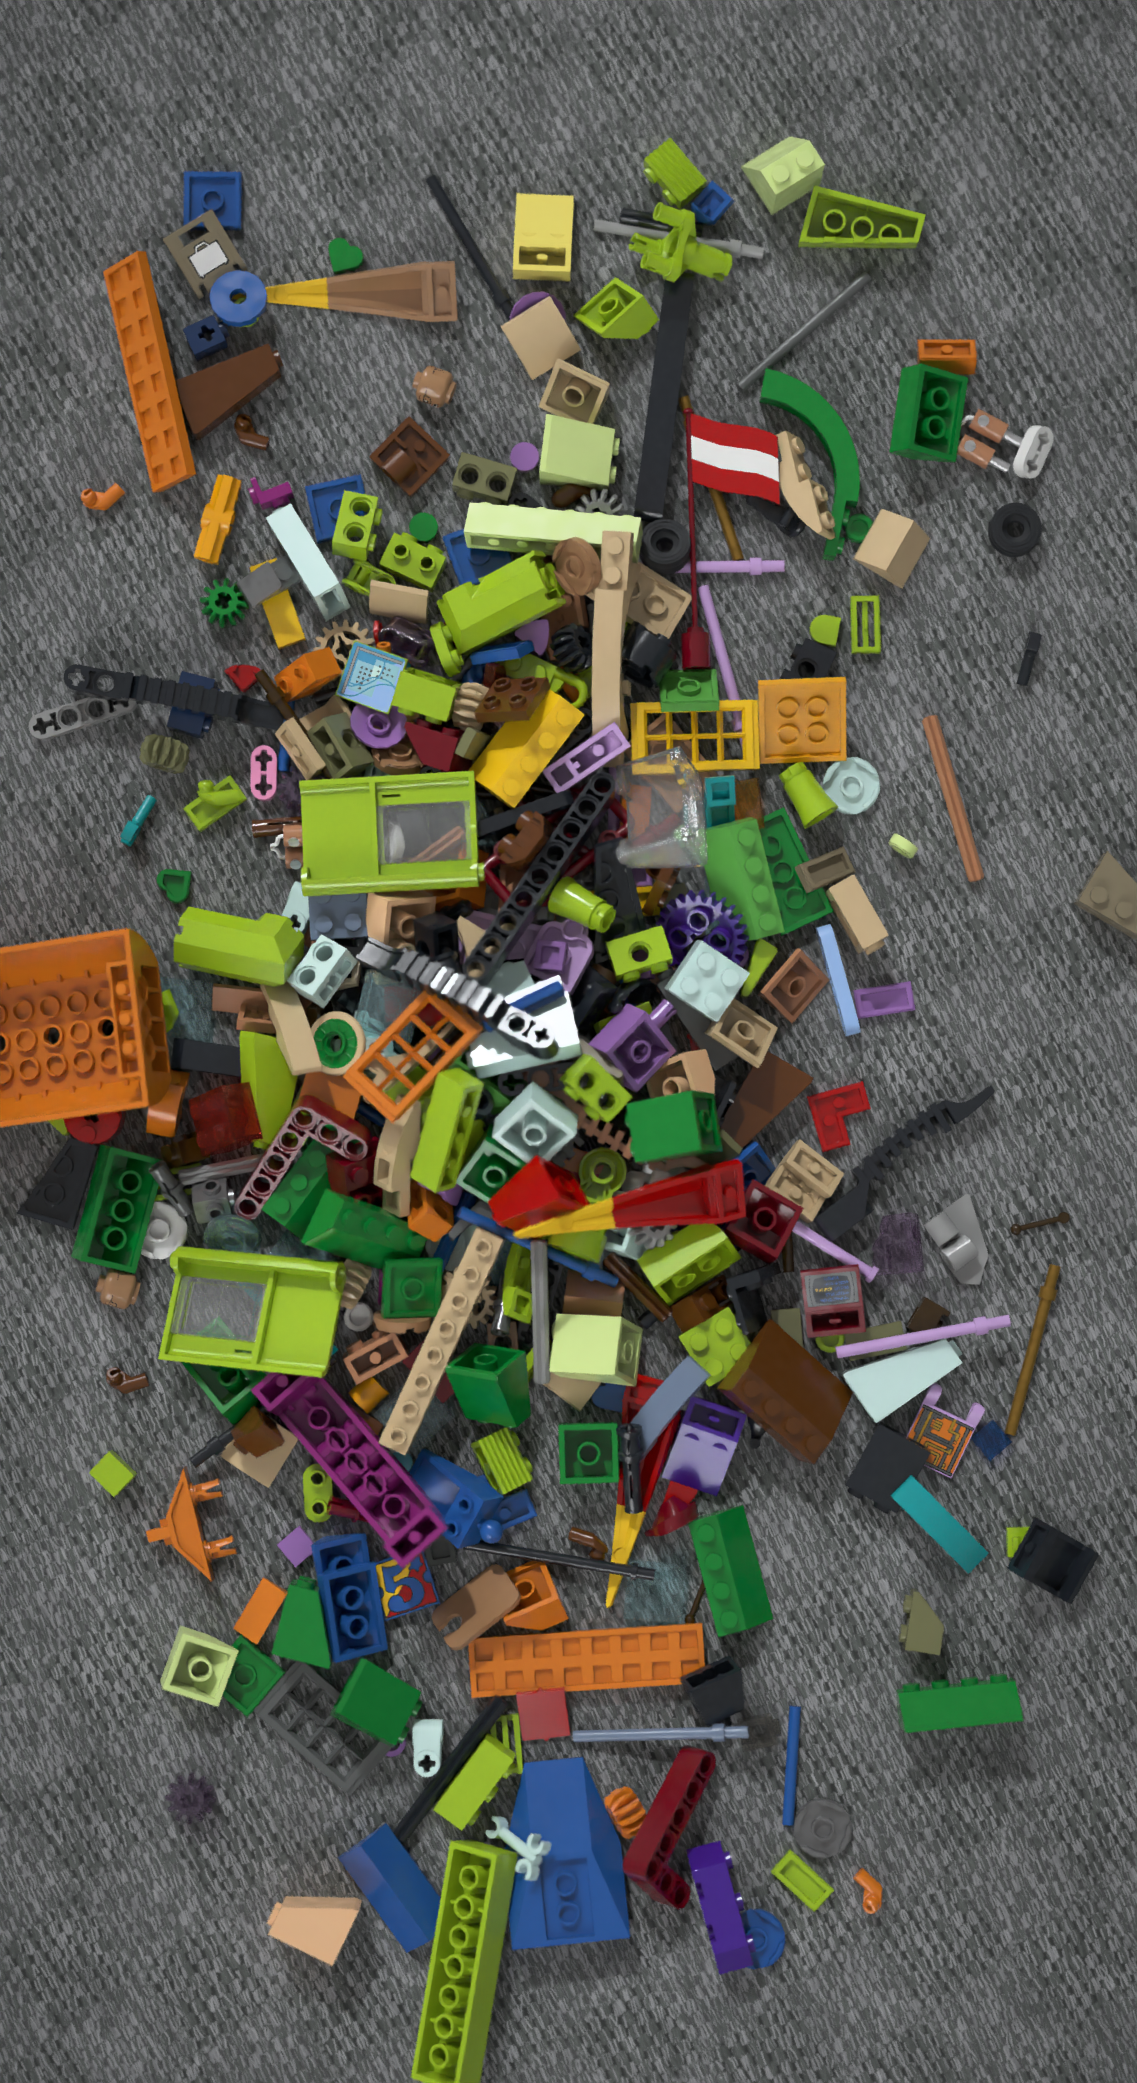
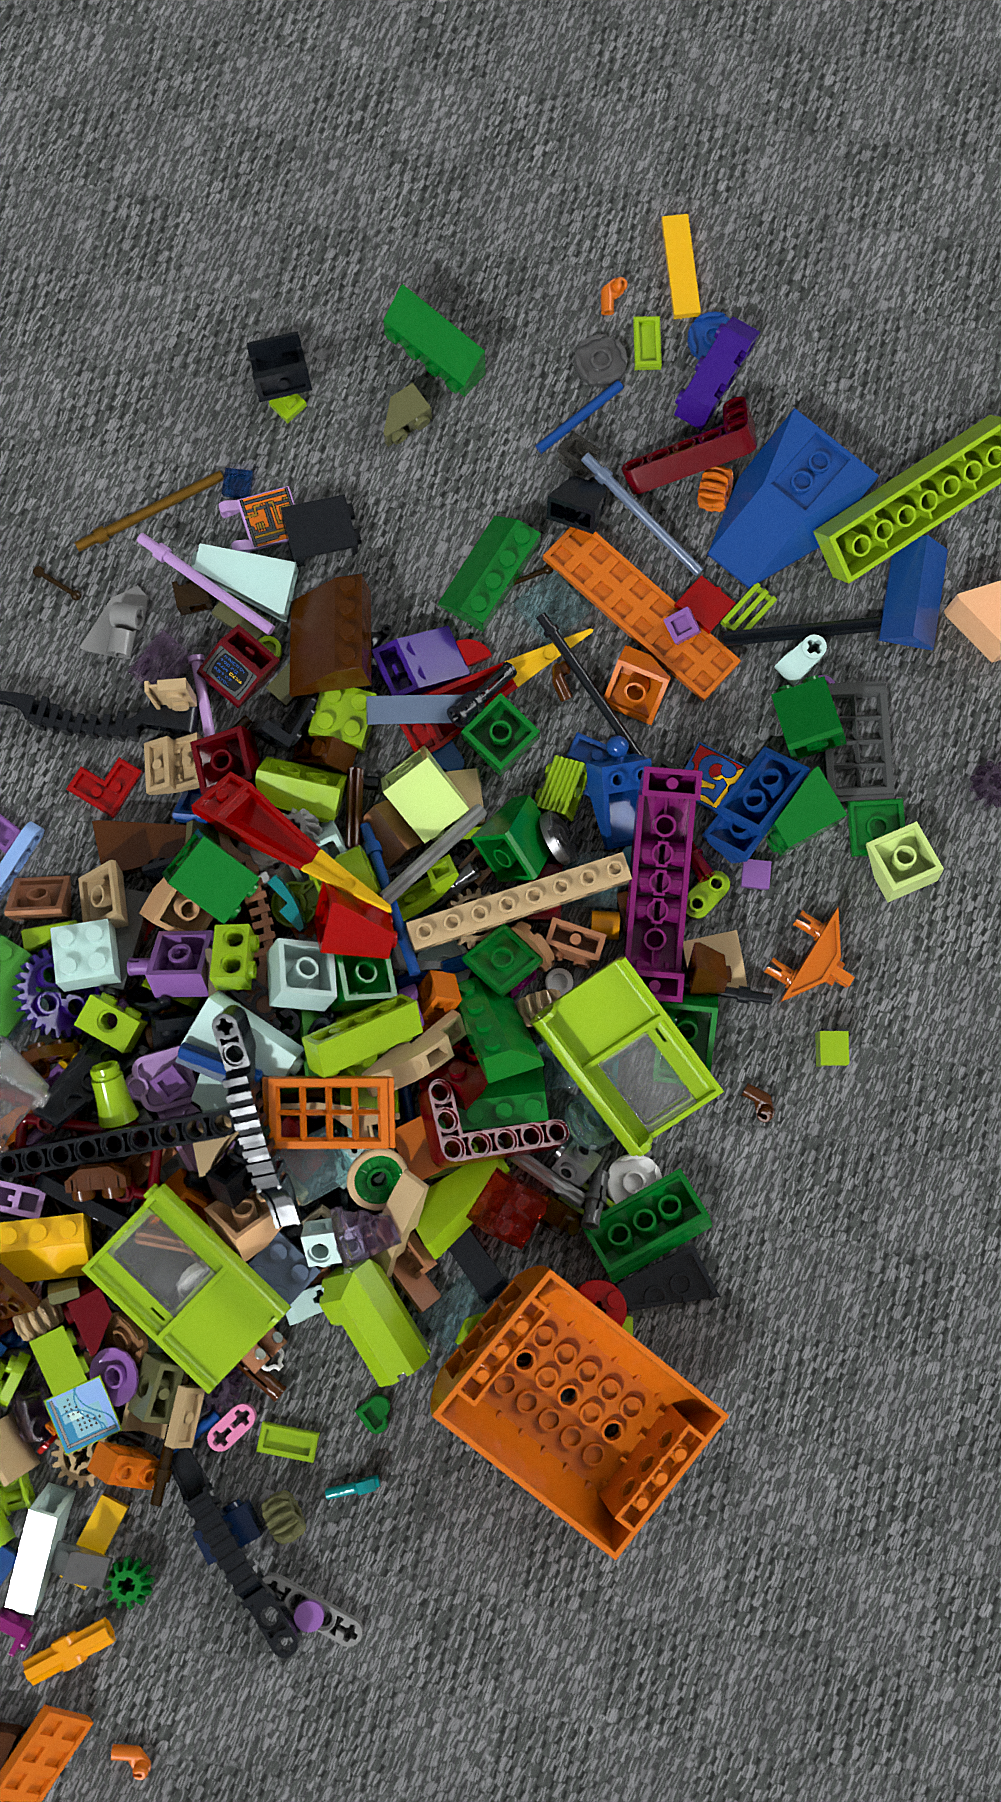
camera: 130 degrees left, 5 degrees down
(79, 709) = (309, 1615): none -> medium lavender tile
(118, 1288) = (702, 1170): medium nougat head -> none
(166, 1115) = (550, 1253): orange brick -> none
(216, 797) = (281, 1445): lime arm -> none
(243, 676) = (173, 1513): red tile -> none
(260, 1610) = (823, 857): orange slope -> none
(304, 995) = (362, 1234): none -> clear purple slope
(469, 1418) = (556, 836): none -> flat silver tile
(475, 1782) = (794, 604): lime brick -> none
(478, 1604) = (672, 712): medium nougat piece -> none
(531, 1851) = (804, 522): light aqua bar -> none
(540, 1676) = (682, 625): none -> medium lavender tile
(594, 1165) = (292, 910): none -> teal slope
(672, 1516) = (491, 637): dark red piece -> none
(841, 1971) = (680, 266): none -> yellow tile
(849, 1230) = (171, 692): none -> tan plate
(939, 1524) = (324, 462): teal slope -> none

